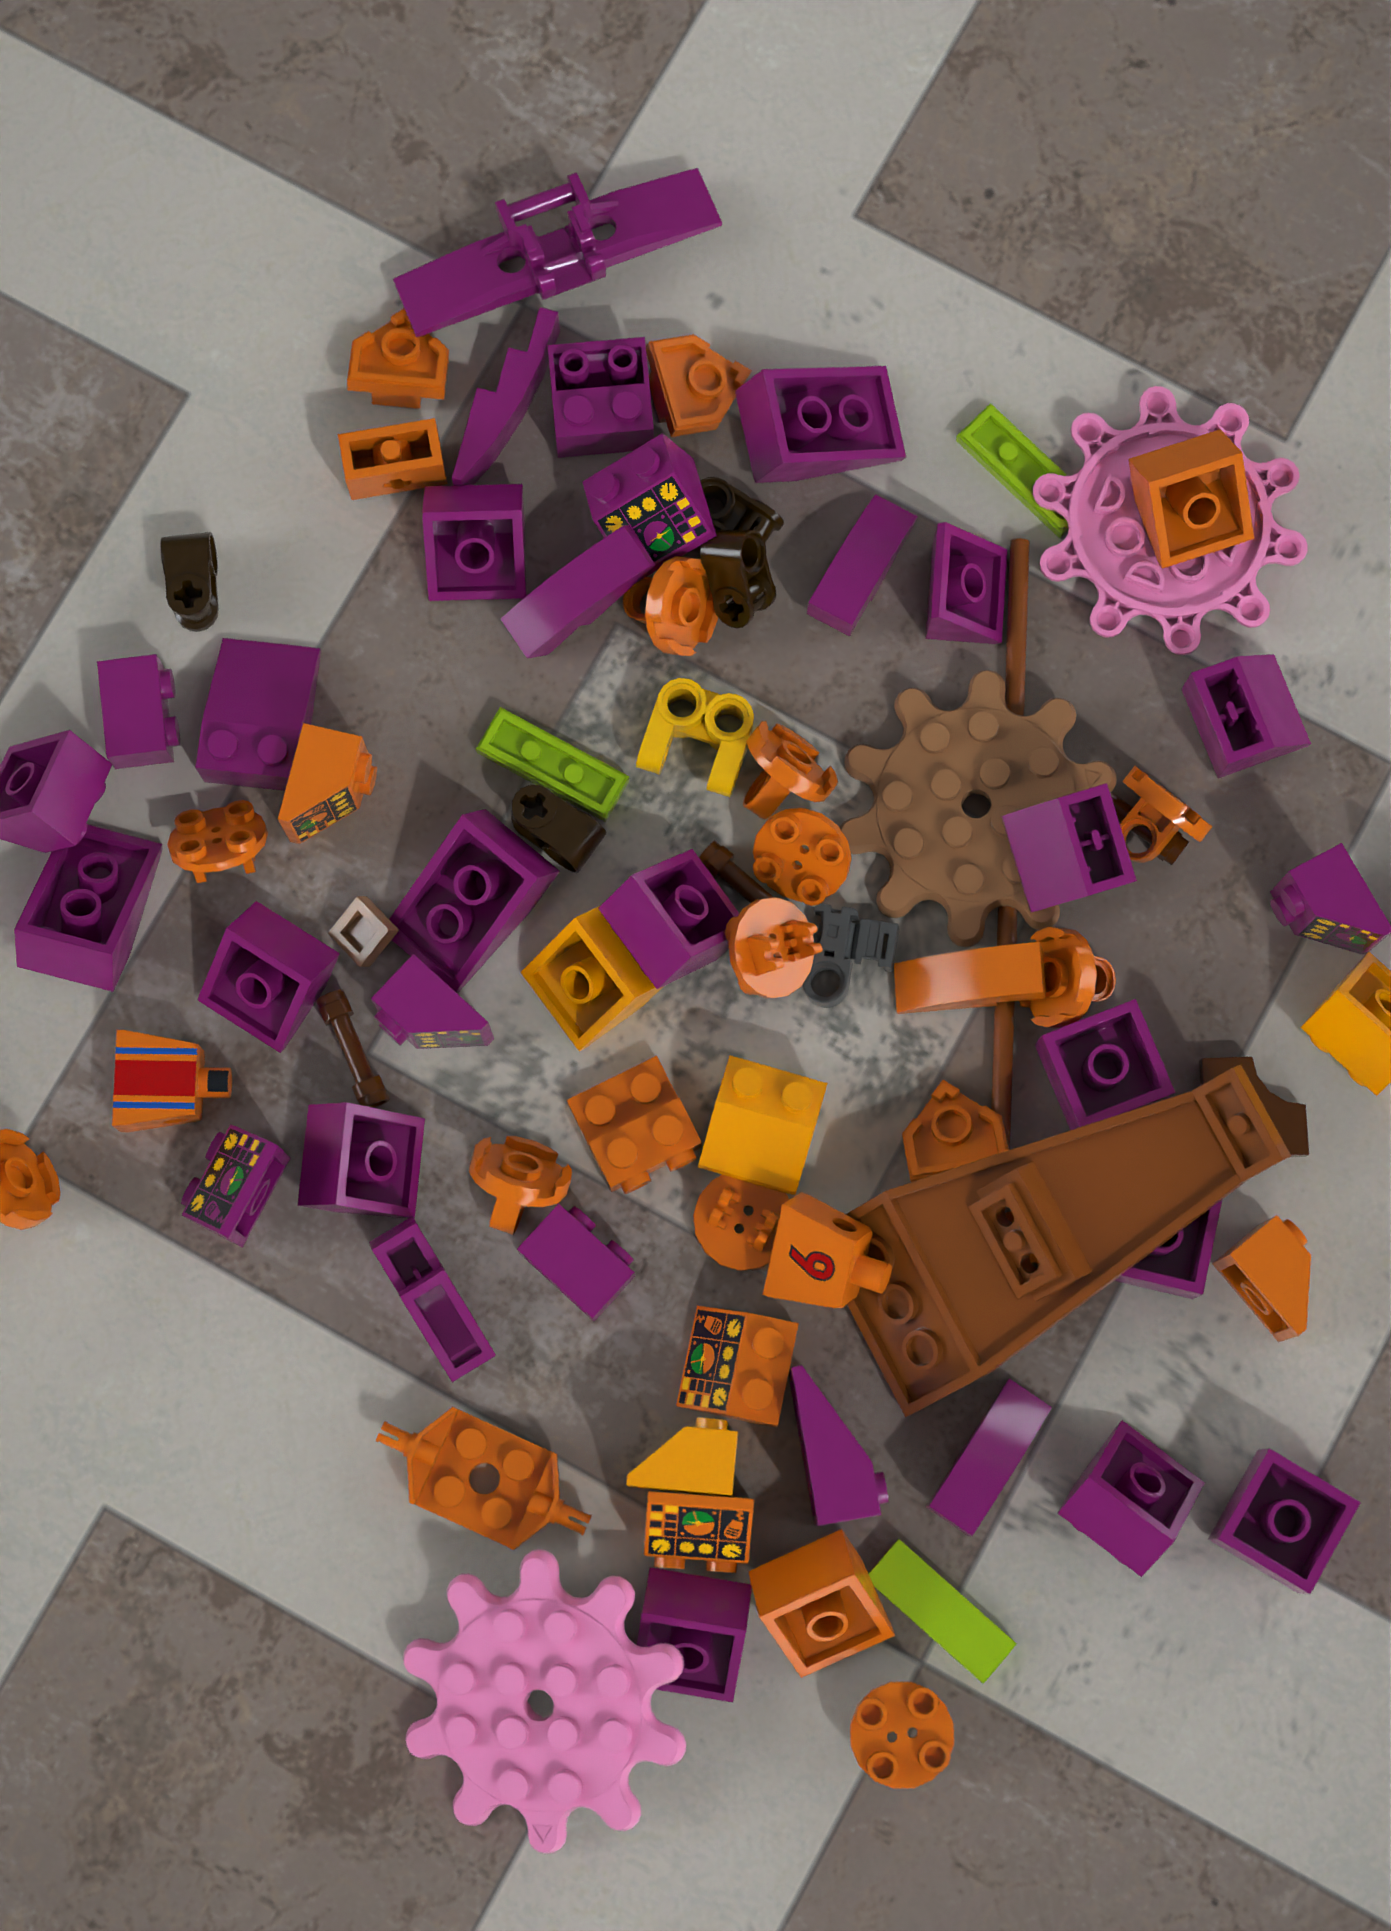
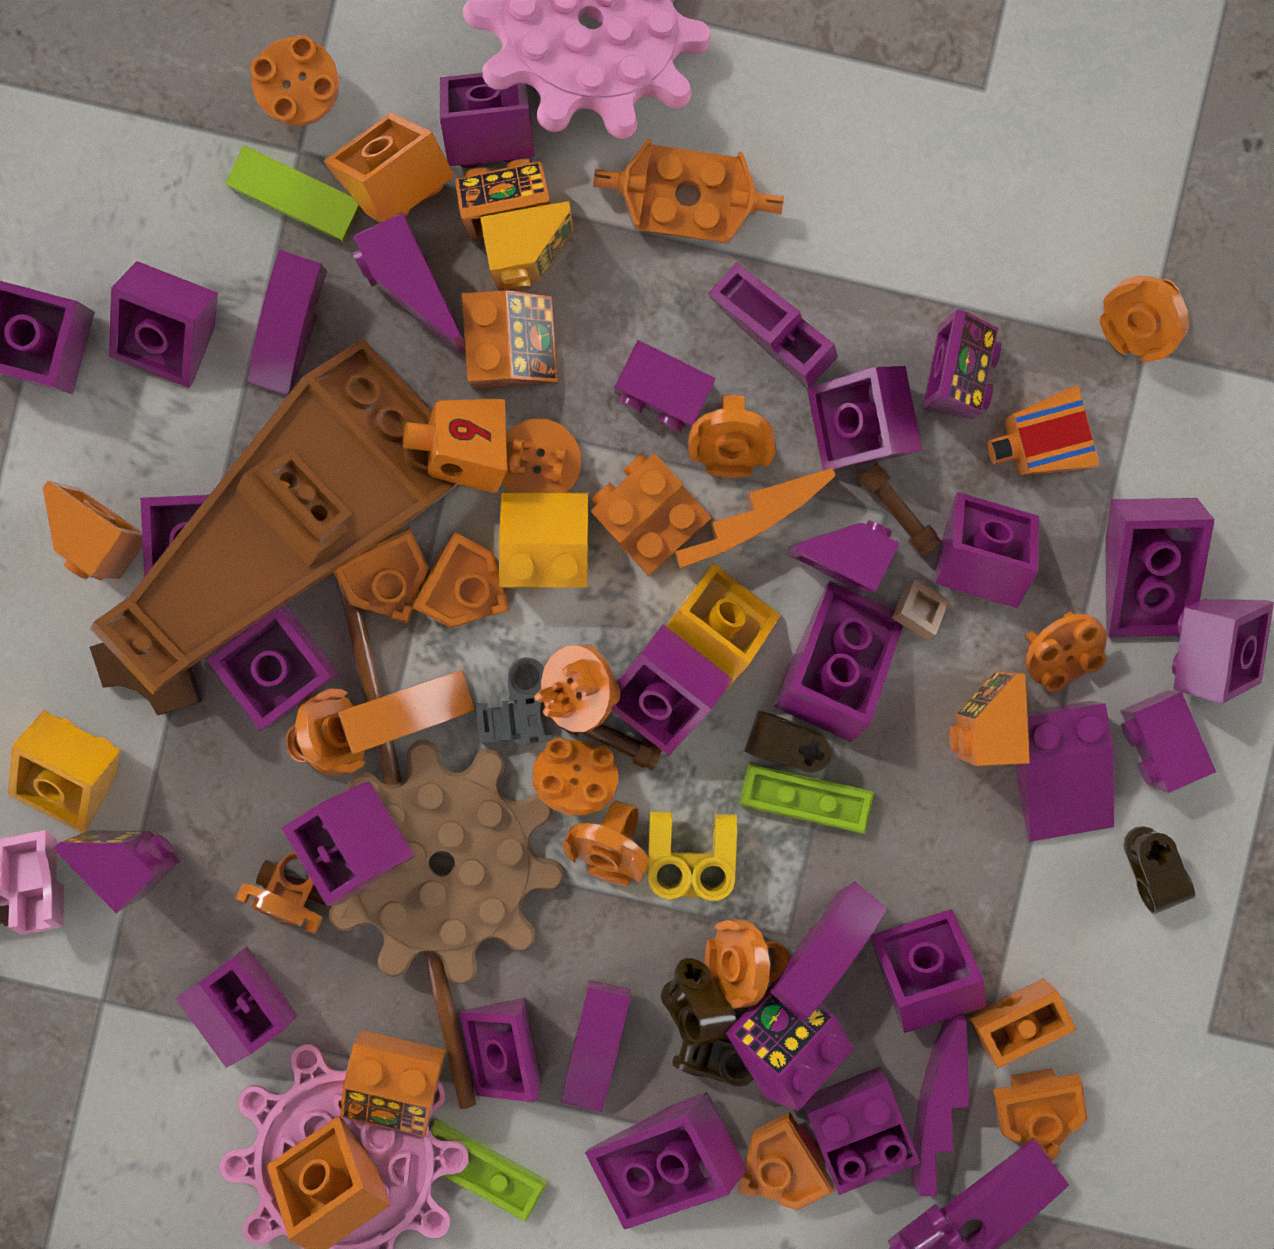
camera: 165 degrees right, 10 degrees up
(499, 1090) = (766, 509): none -> orange slope
(870, 1104) = (461, 584): none -> orange plate
(1092, 585) = (391, 1082): none -> orange slope

